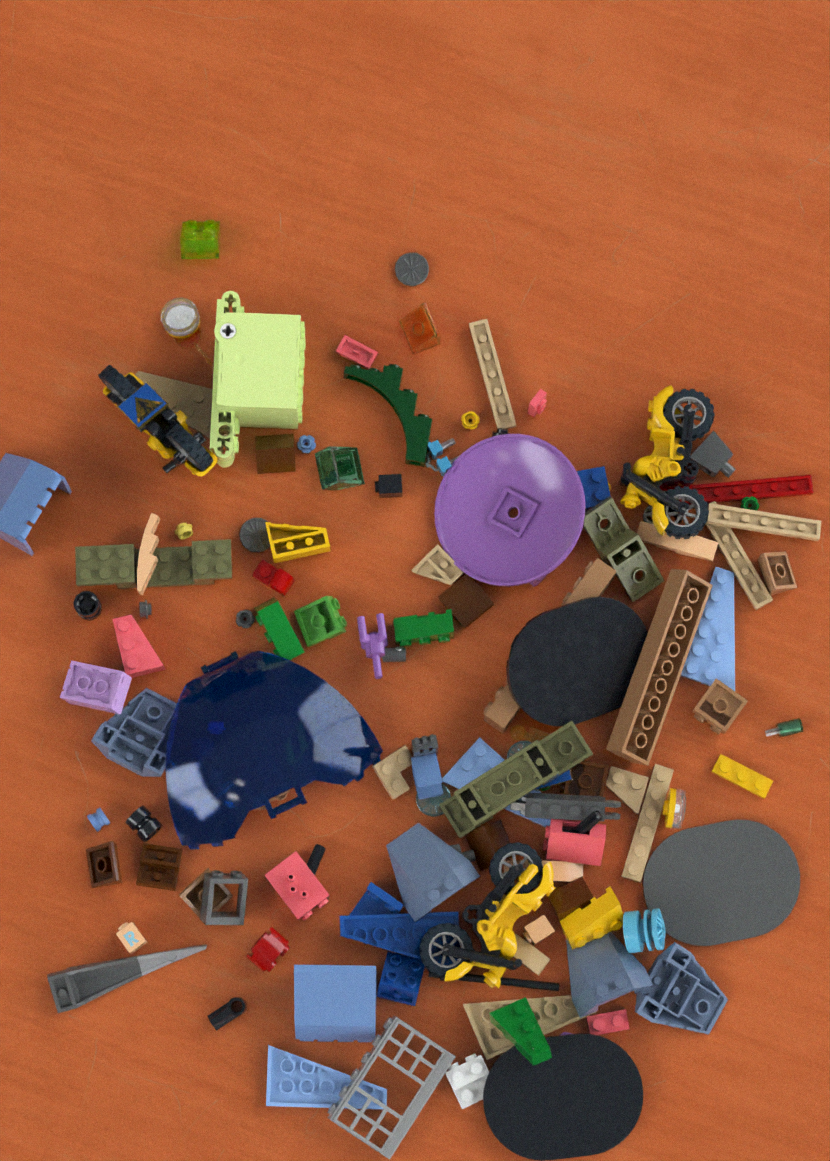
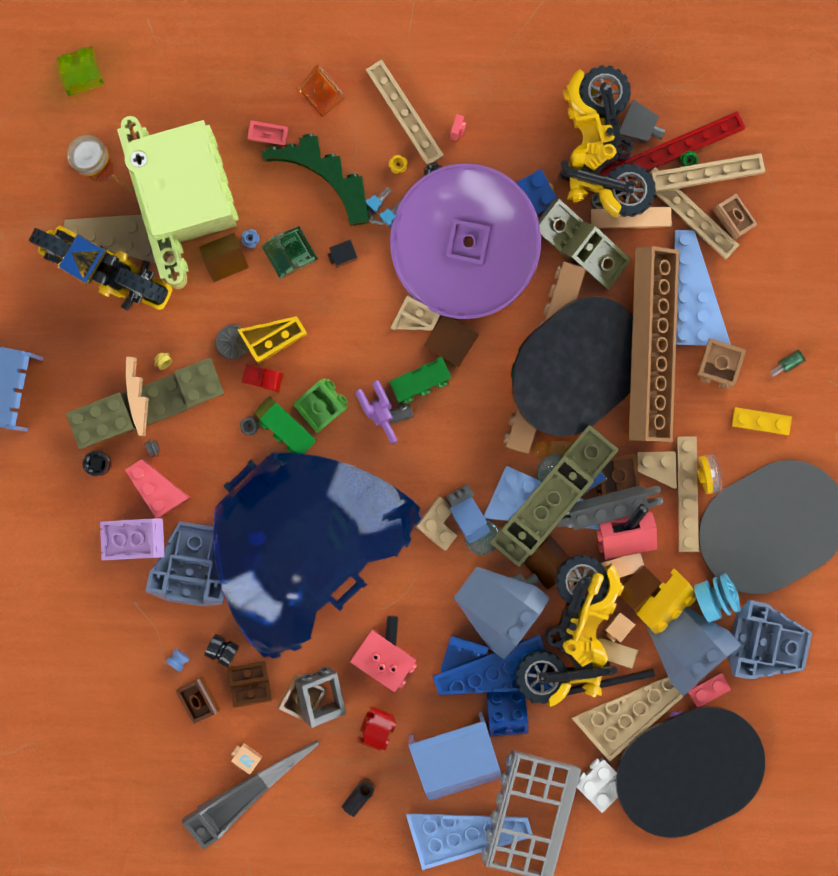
camera: 20 degrees left, 10 degrees up
(411, 269) = (293, 33): dark grey wheel -> none
(522, 1029) = (636, 727): green wedge -> none

